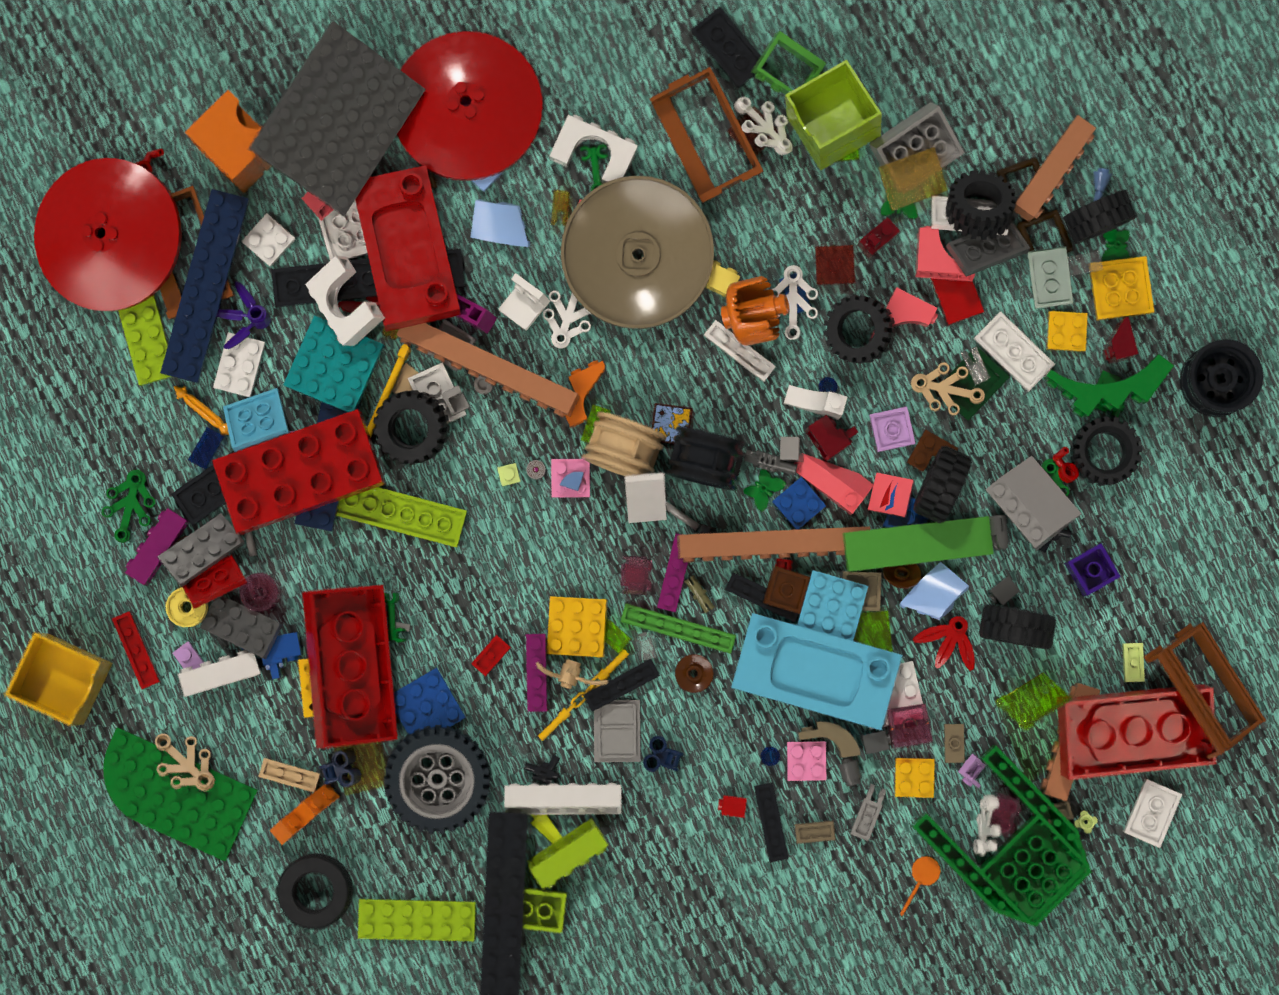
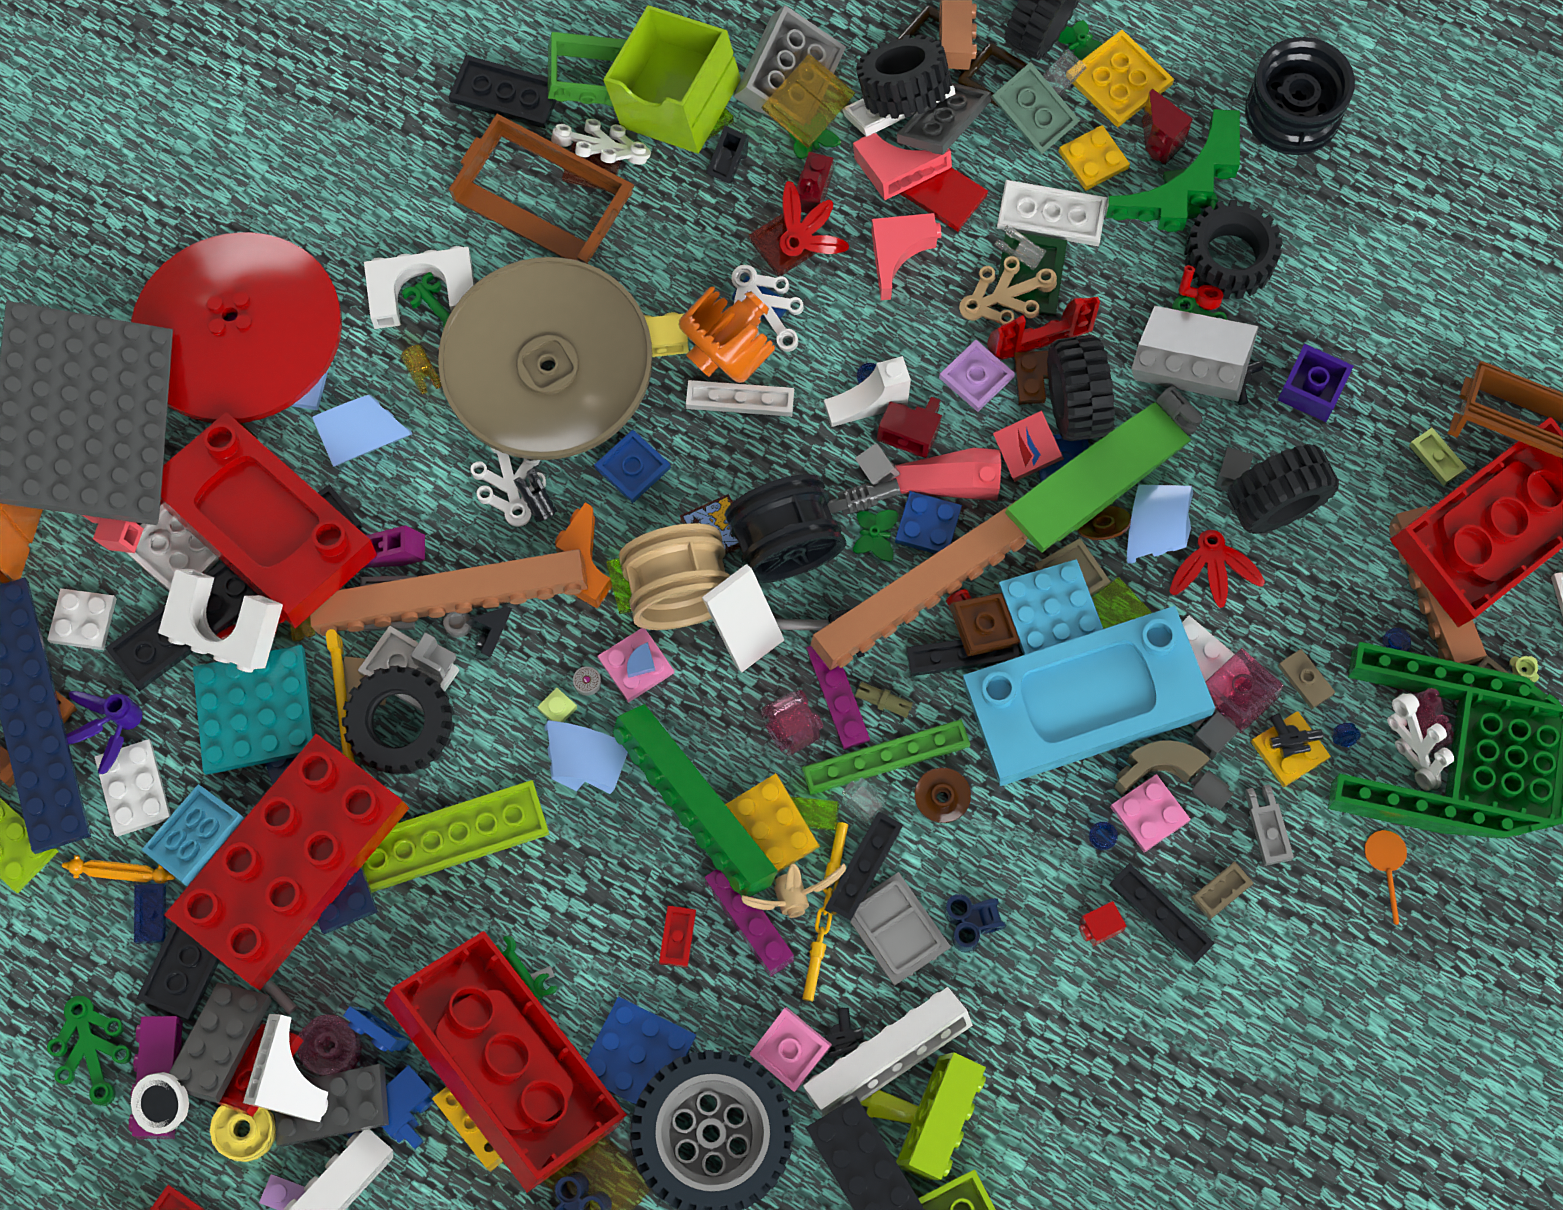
camera: 30 degrees left, 15 degrees down
(149, 566) = (159, 1103): none -> tile
(217, 598) = (276, 1079): none -> white arch
(291, 599) = (383, 1035): none -> blue plate
(502, 401) = (492, 625): none -> black slope
(505, 516) = (583, 756): none -> light blue slope
(511, 760) = (790, 1049): none -> bright pink plate
(524, 303) = (447, 495): white bracket -> none
(547, 586) = (694, 802): none -> green brick
(576, 338) = (537, 499): none -> black hinge
(647, 353) = (632, 466): none -> blue plate
(837, 184) = (728, 154): none -> black slope
(847, 269) = (803, 231): none -> red plant
(882, 333) = (885, 307): black tyre -> none
(916, 773) = (1291, 739): none -> black piece
(929, 422) = (1076, 320): none -> red wedge
(951, 791) = (1346, 734): none -> clear blue plate
(971, 769) = (1350, 695): lavender bracket -> none
(1023, 756) = (1397, 639): none -> clear blue plate
(1033, 701) = (1363, 561): clear neon green piece -> none

